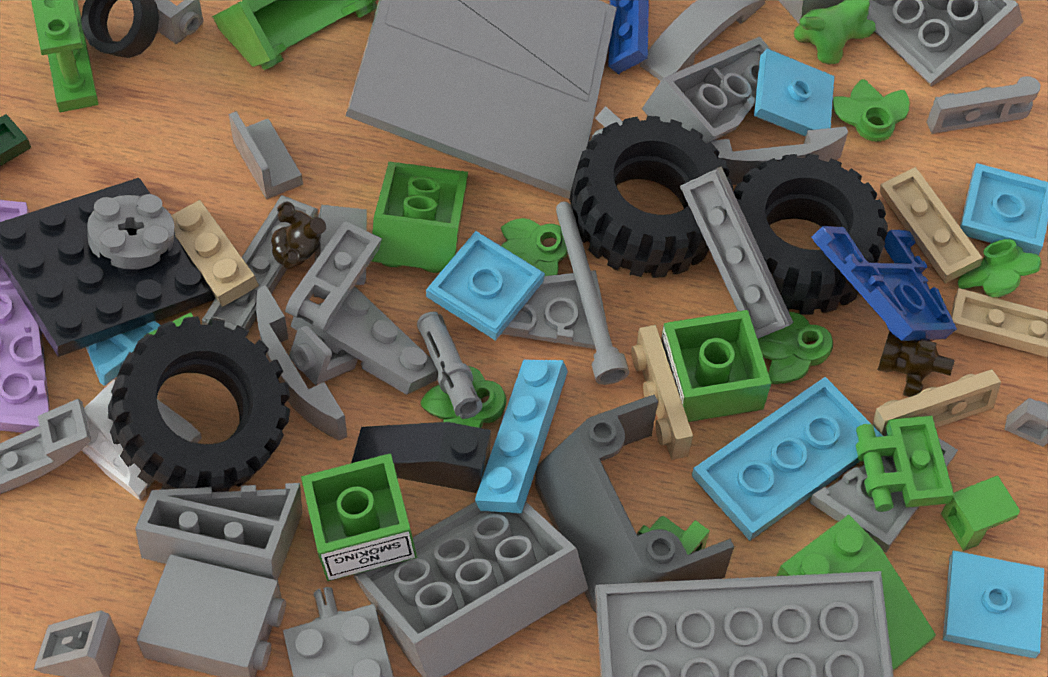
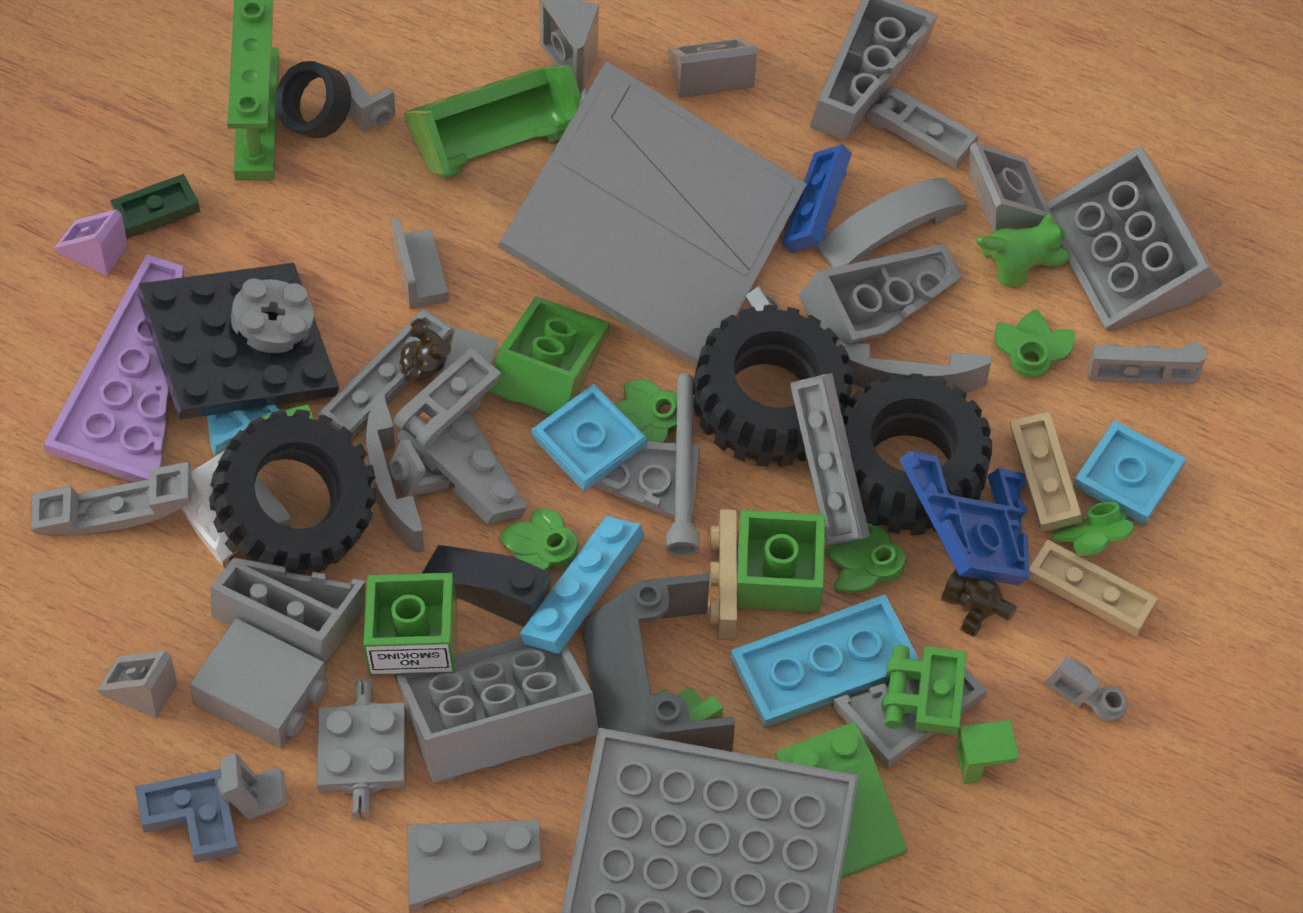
camera: 15 degrees right, 0 degrees up
(213, 253) = (343, 351): tan plate -> none
(453, 375) = (534, 515): light grey pin -> none
(793, 94) = (956, 311): medium azure plate -> none
(946, 403) = (991, 645): tan plate -> none
(994, 604) = (971, 835): medium azure plate -> none

